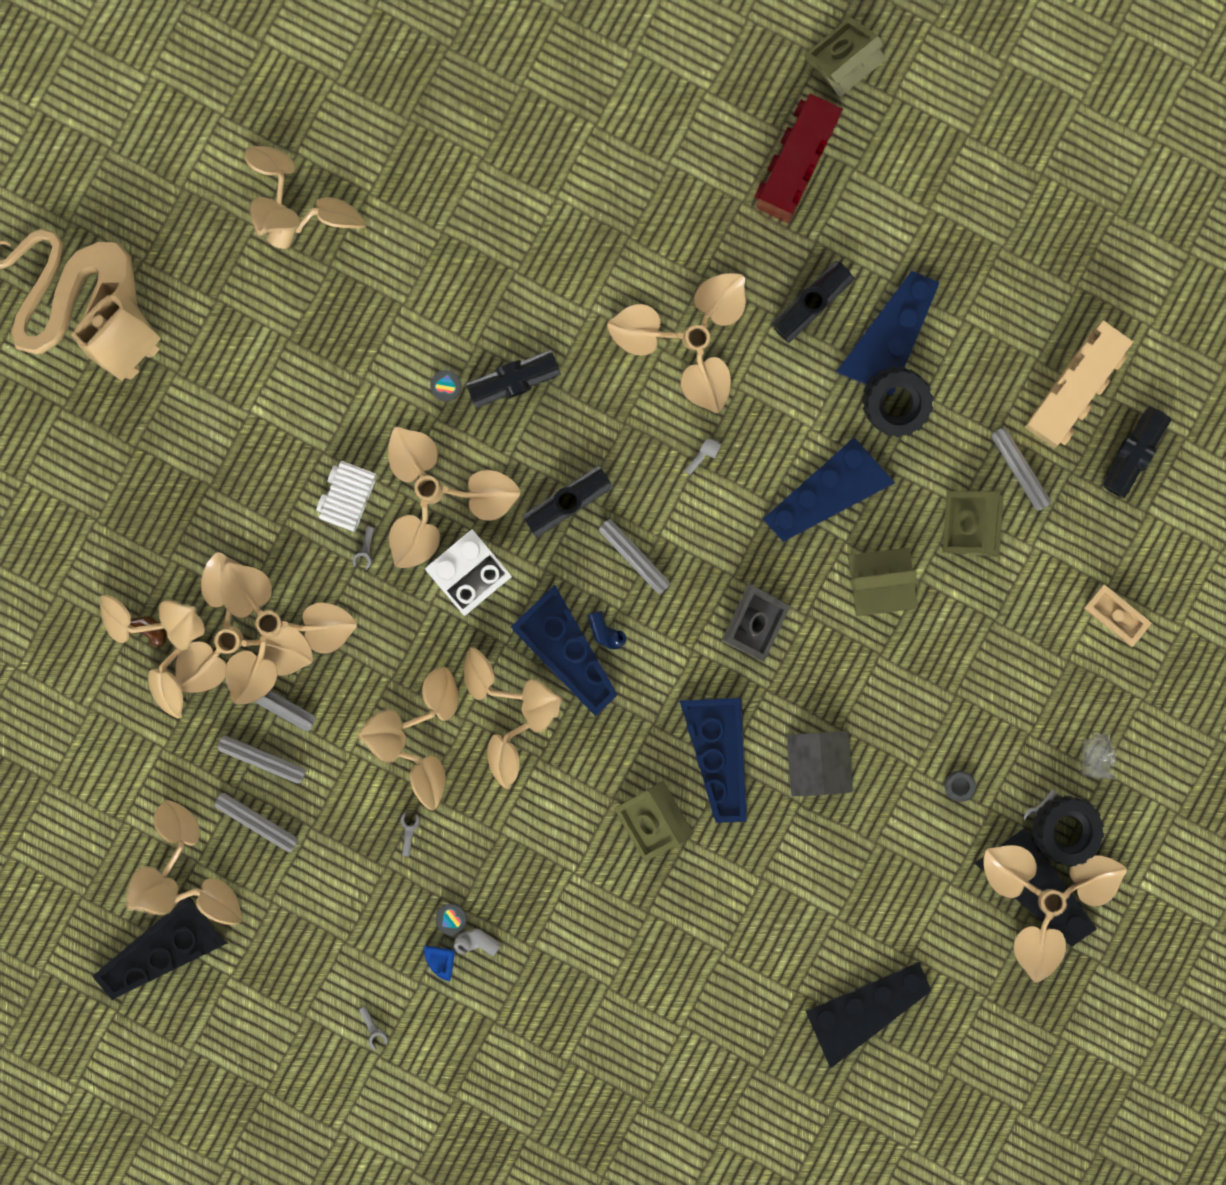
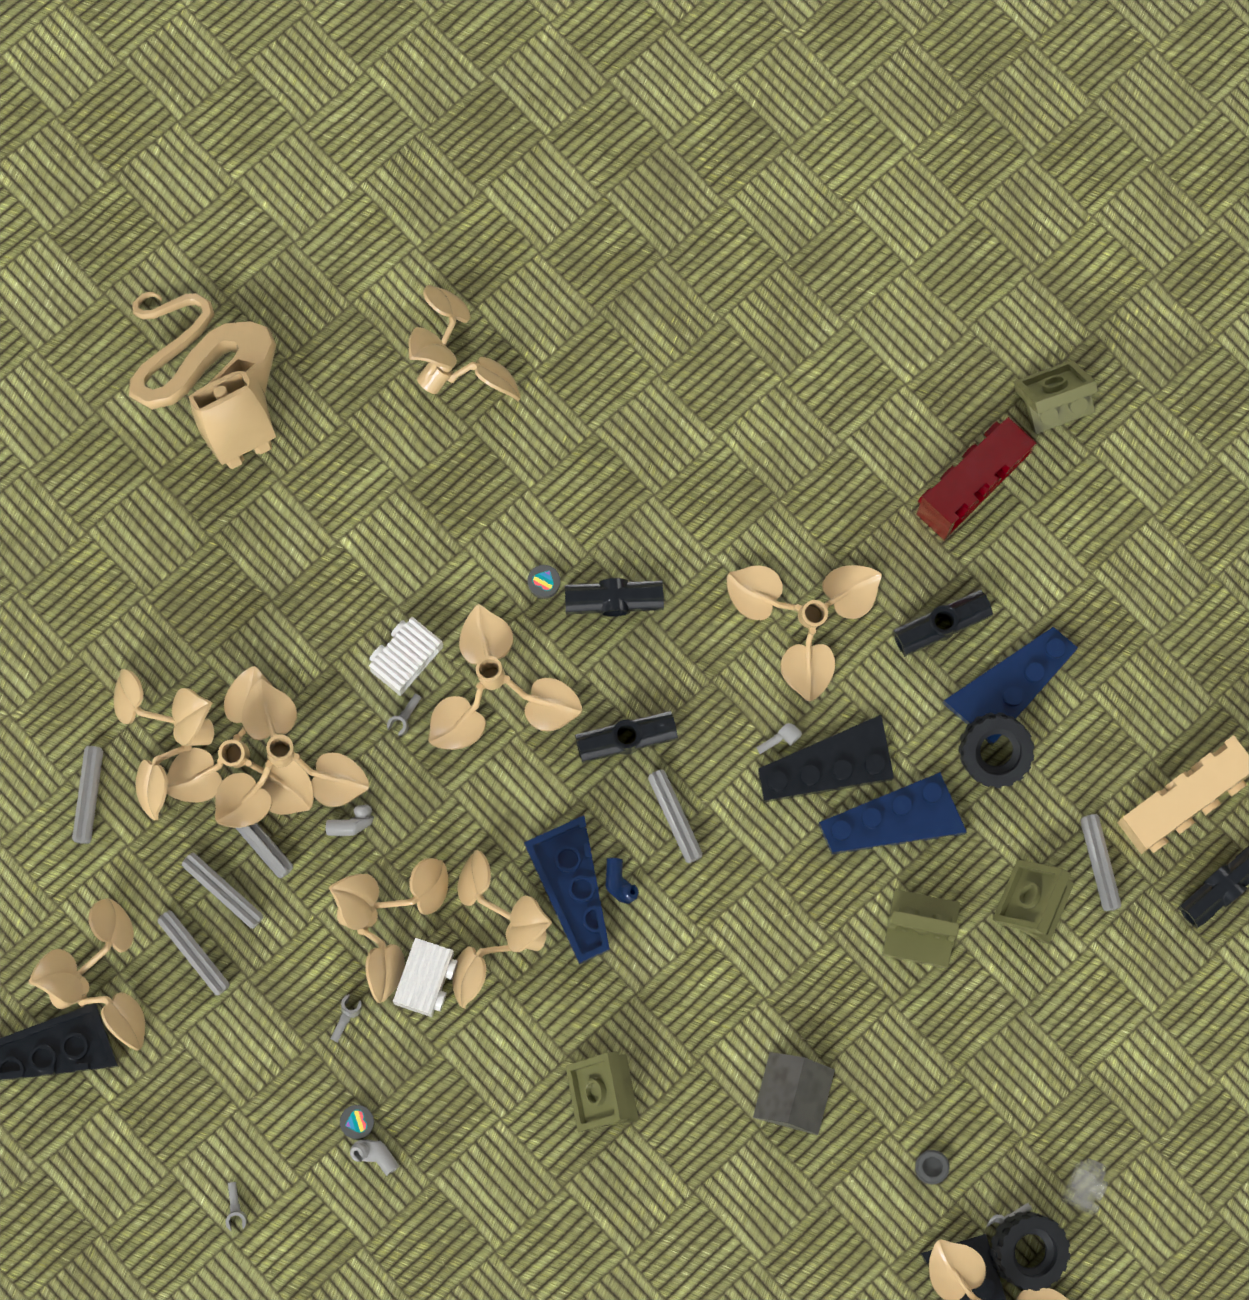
camera: 15 degrees right, 10 degrees down
(112, 716) = (87, 794): none -> light grey axle
(156, 637) = (162, 729): reddish brown arm -> none
(360, 656) = (351, 826): none -> light grey arm
(440, 961) = (330, 1162): blue tile -> none
(466, 775) = (424, 978): none -> white brick
(468, 572) = (500, 771): white slope -> none
(719, 749) = (695, 1041): dark blue wing -> none
(755, 623) = (776, 924): flat silver slope -> none
(760, 459) = (836, 763): none -> black wing
(1117, 615) = (1153, 1046): tan plate -> none

